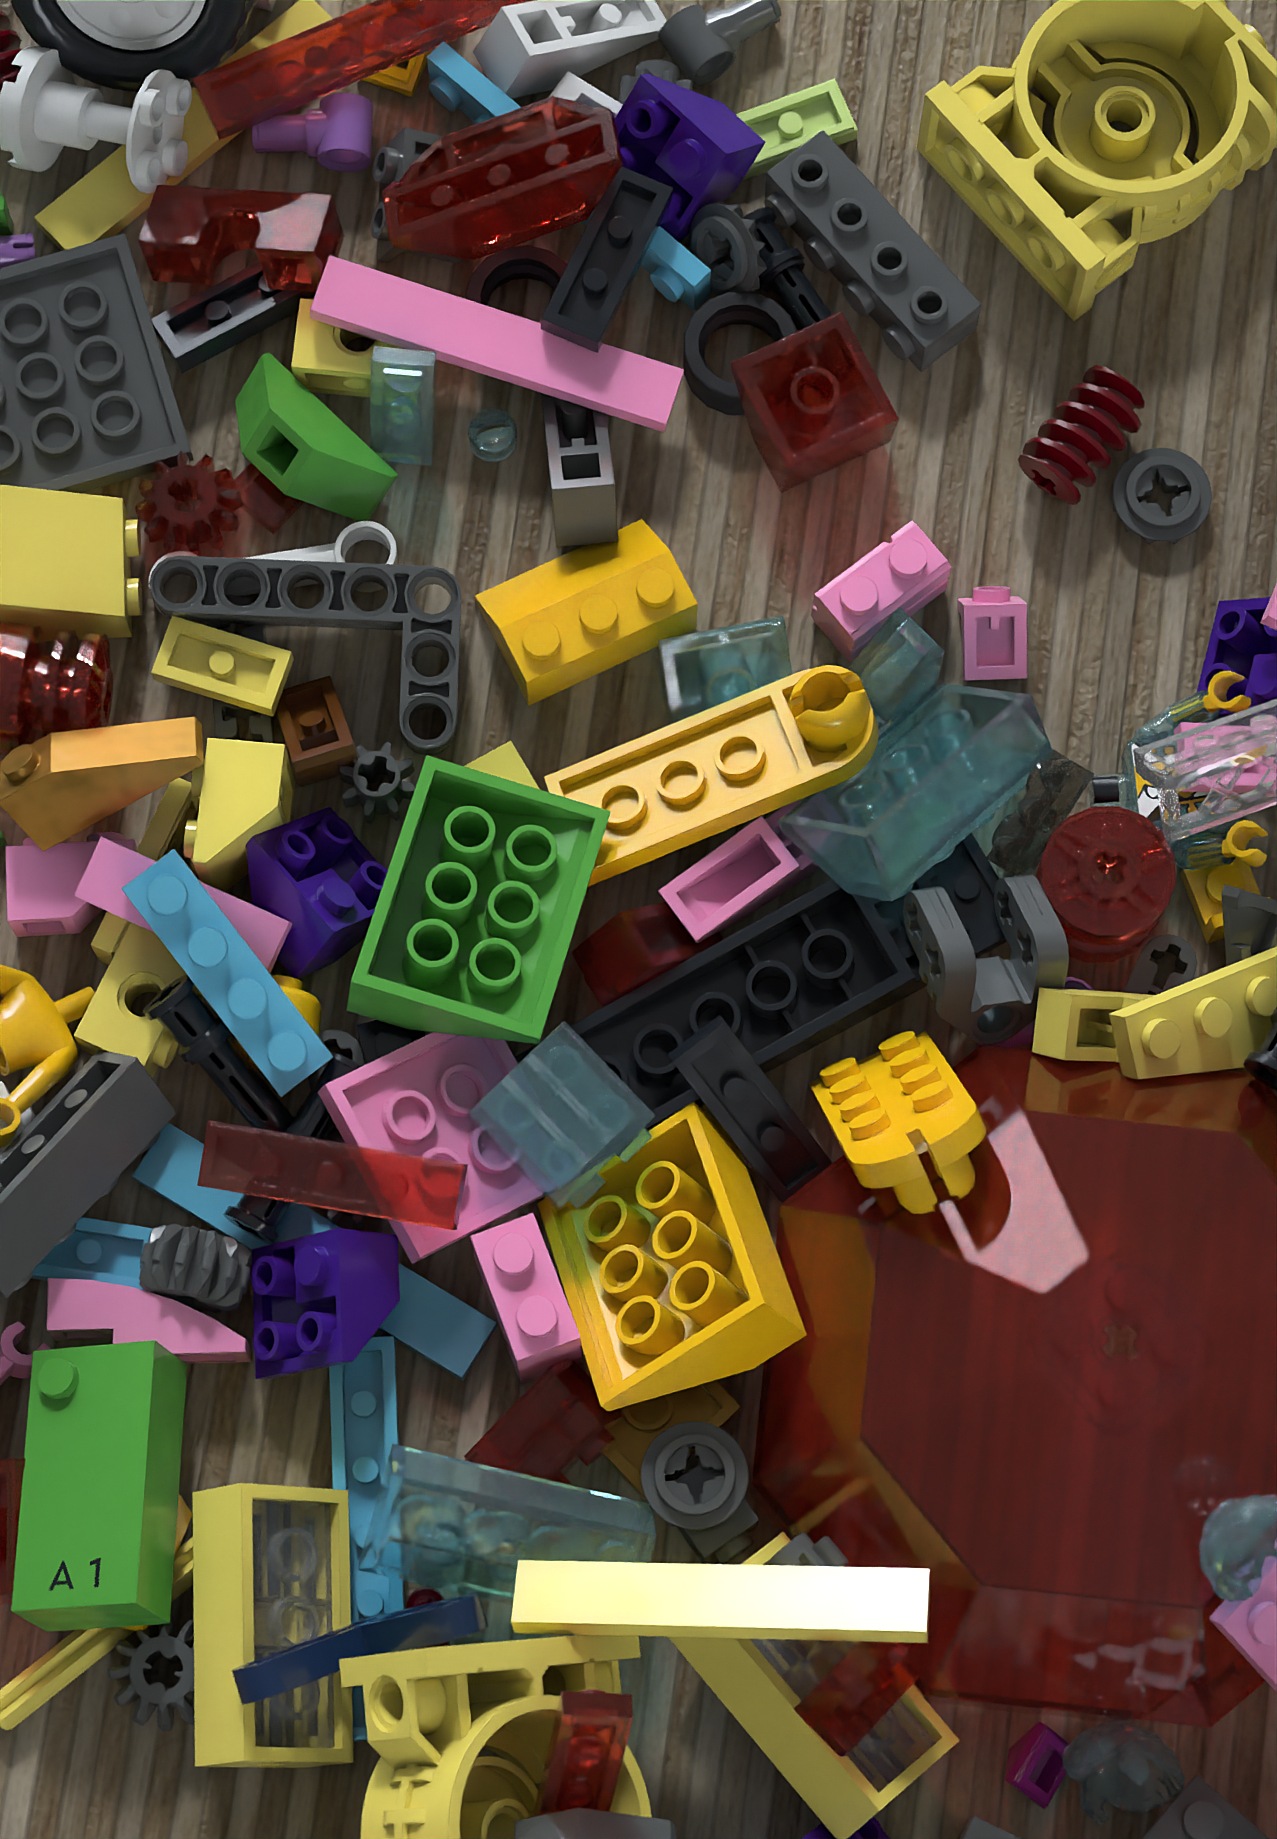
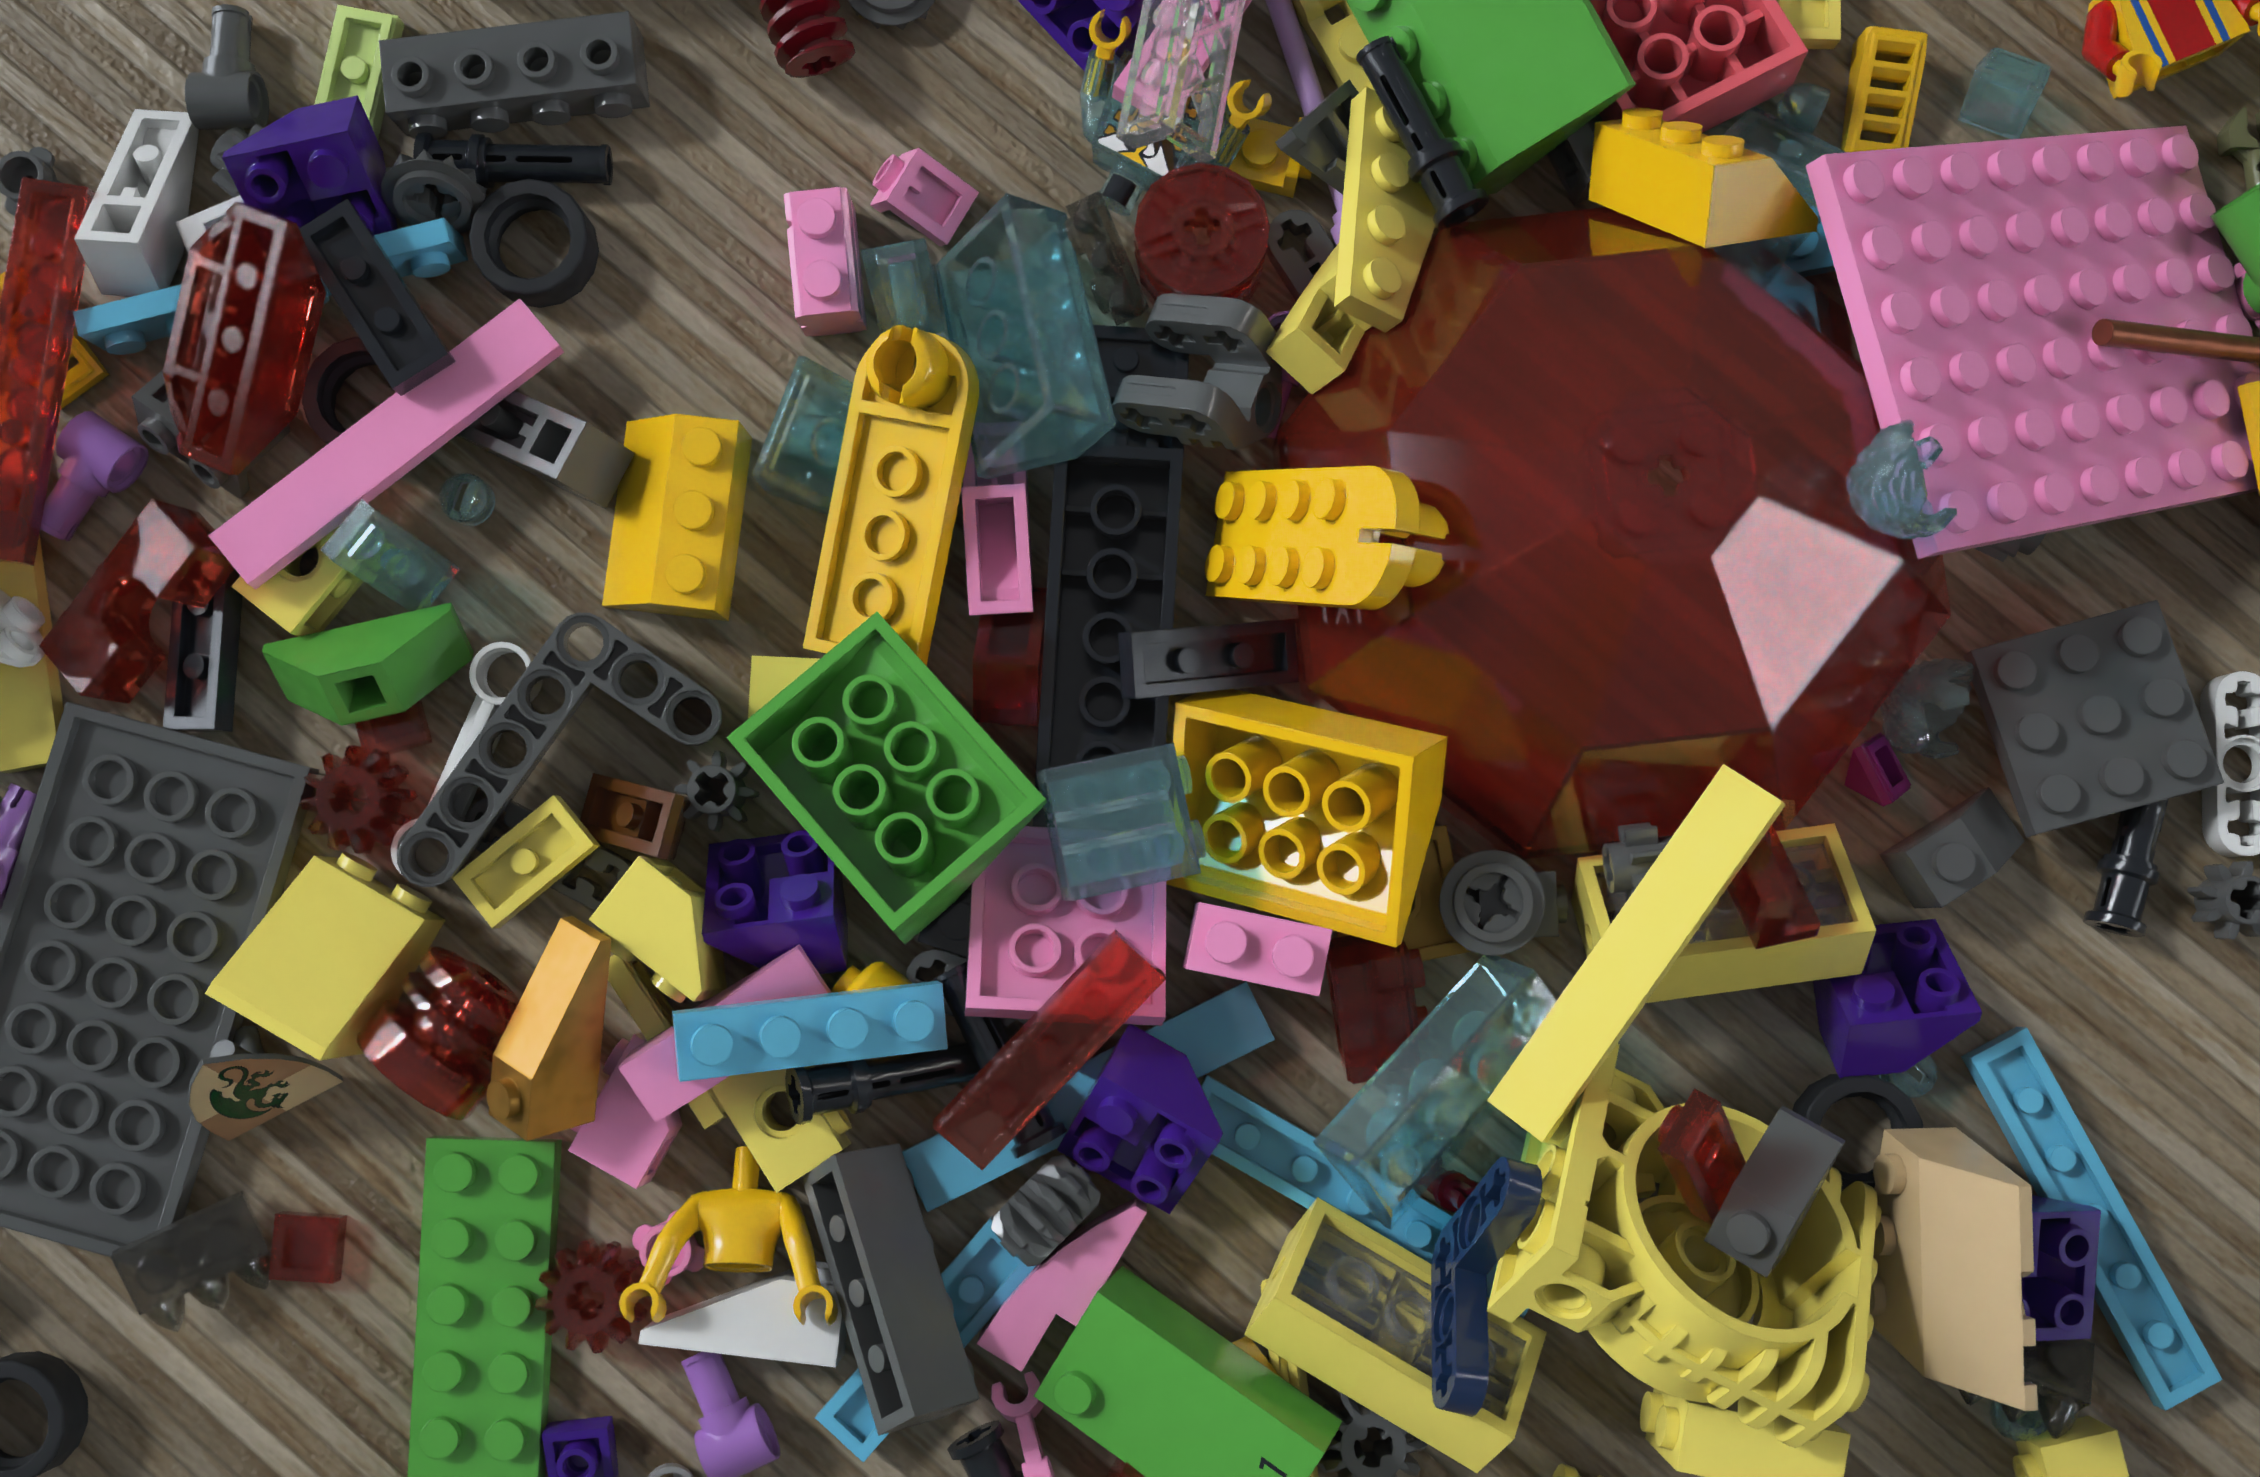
camera: 55 degrees left, 10 degrees up
(813, 402) = (620, 207): clear red slope -> none

